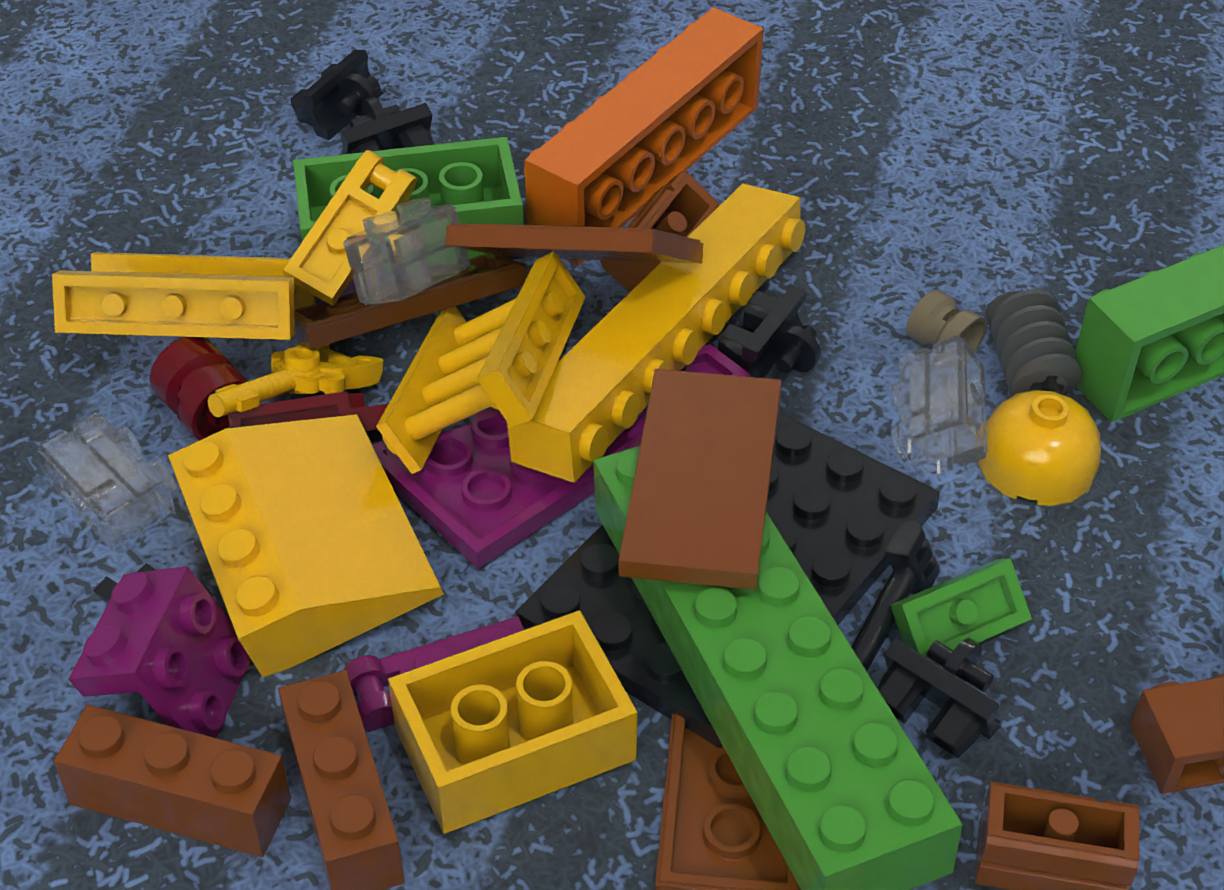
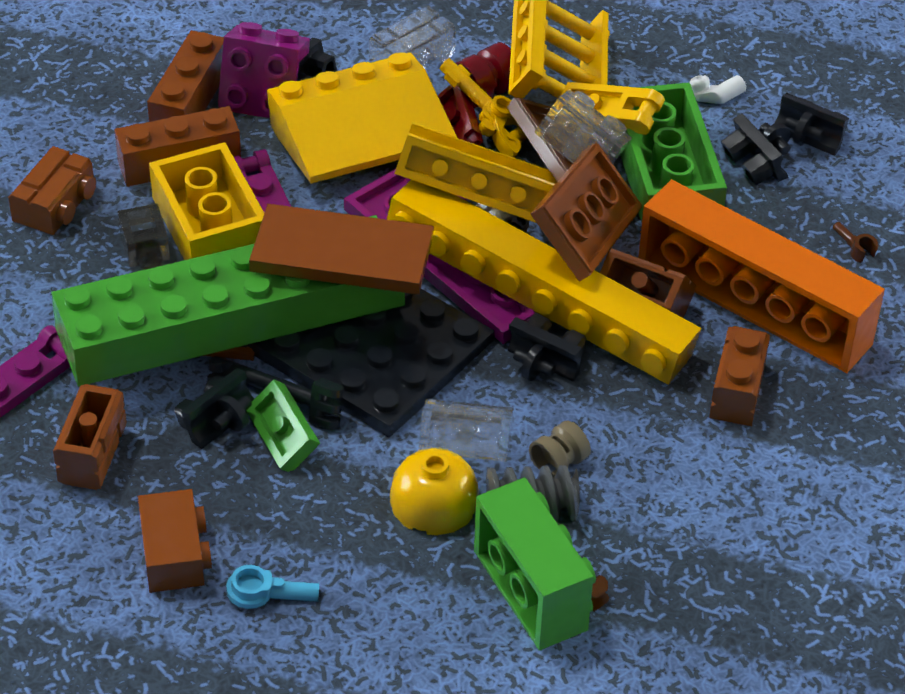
camera: 90 degrees right, 0 degrees up
(256, 175) = (717, 93): none -> white arm
(557, 80) = (857, 243): none -> reddish brown hand
(569, 820) = (147, 246): none -> clear smoke brick
(803, 165) = (739, 375): none -> dark orange brick

